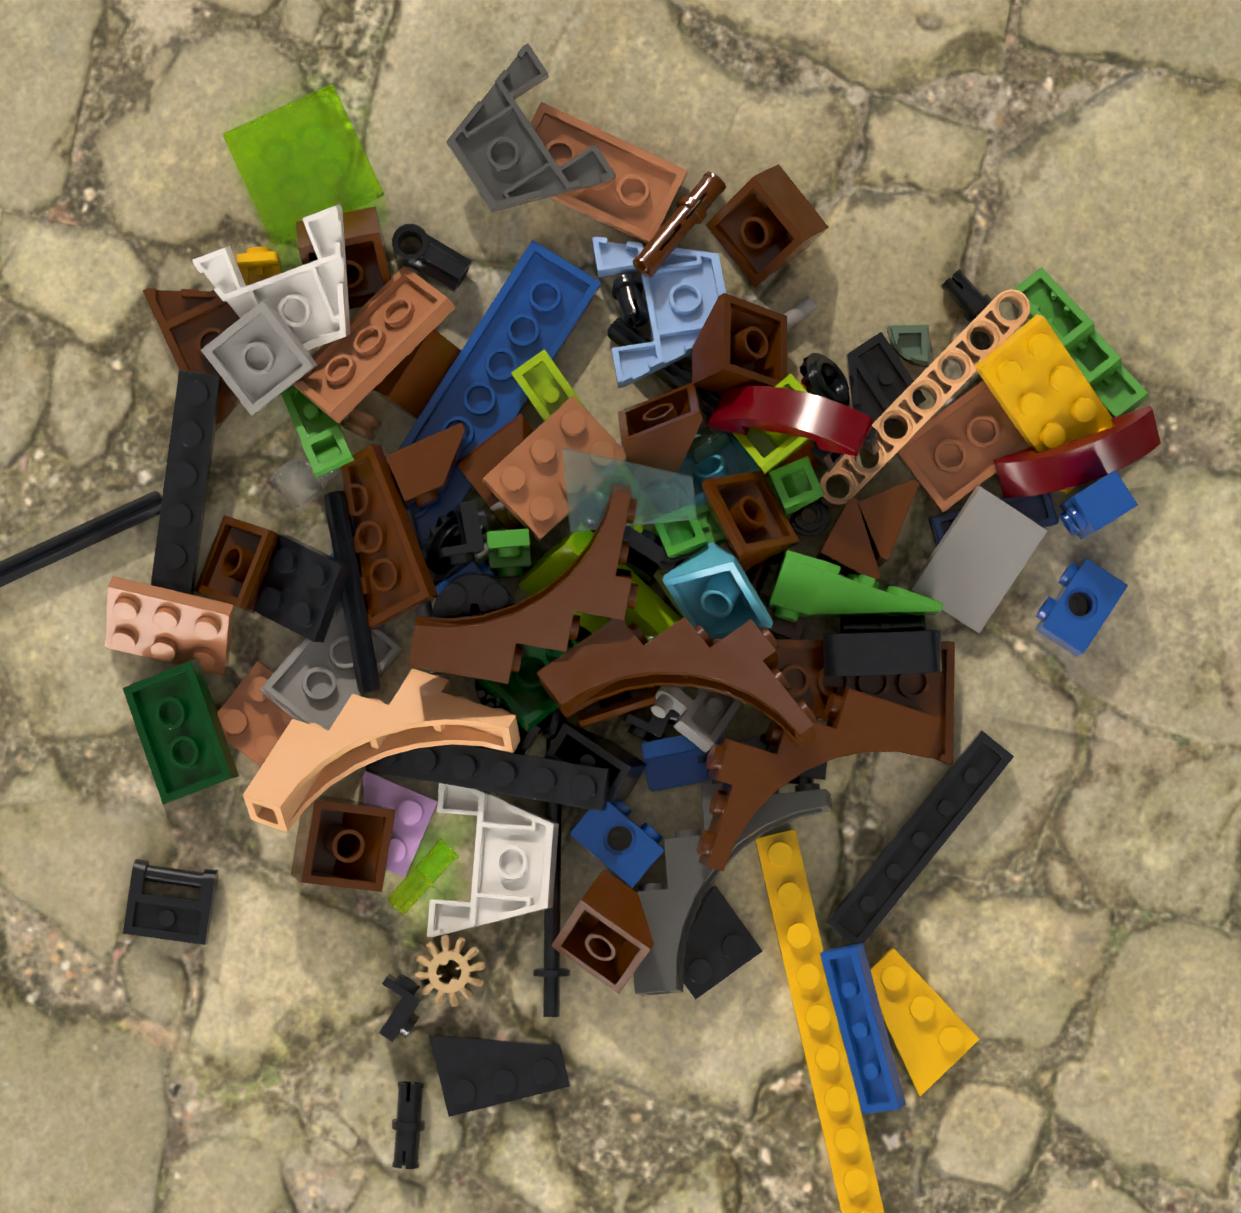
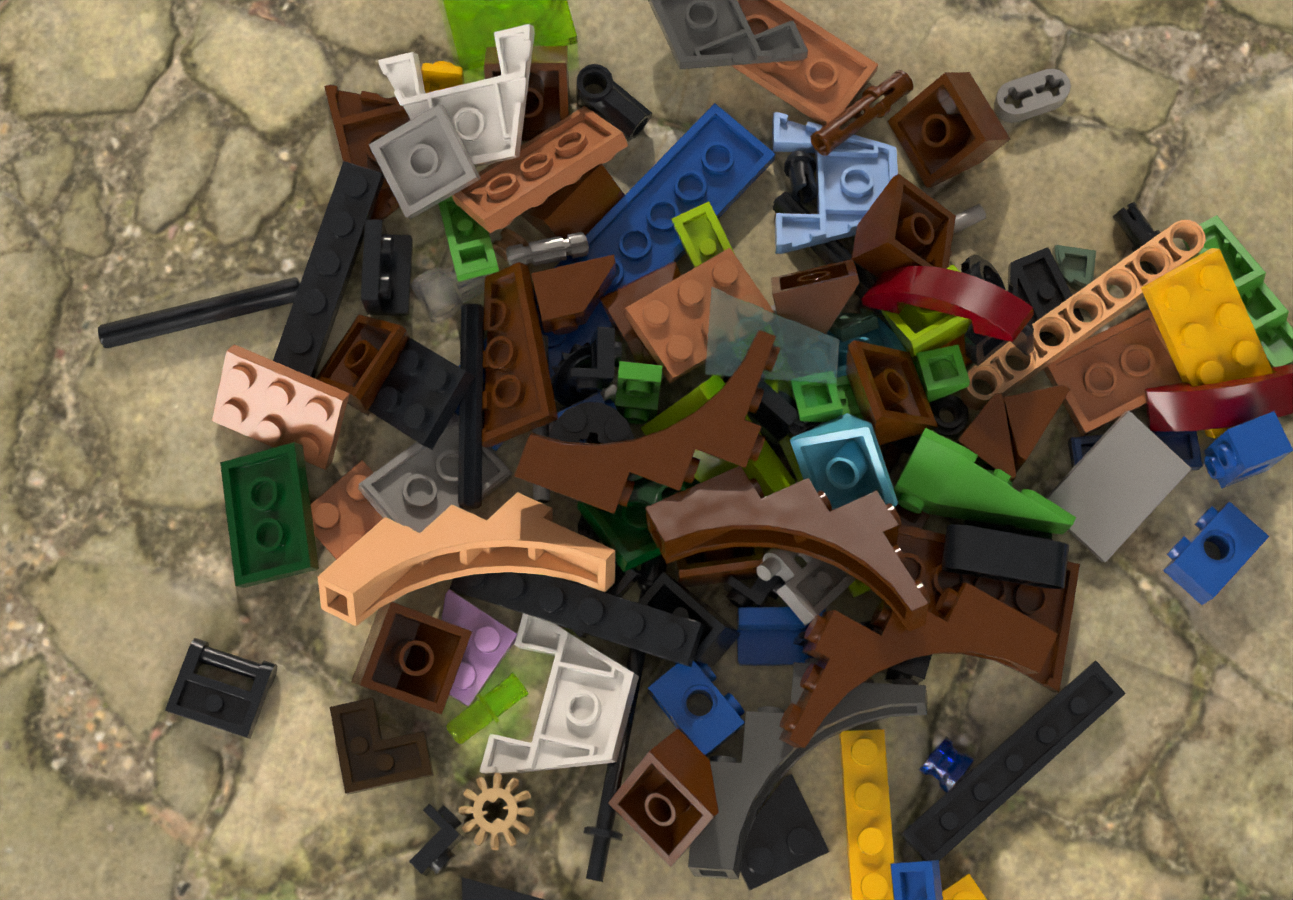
camera: 10 degrees right, 10 degrees down
(243, 470) = (386, 271): none -> black bracket
(322, 944) = (366, 758): none -> dark brown plate
(396, 424) = (548, 250): none -> light grey axle
(839, 165) = (1035, 103): none -> light grey beam
(857, 852) = (946, 764): none -> clear blue wheel

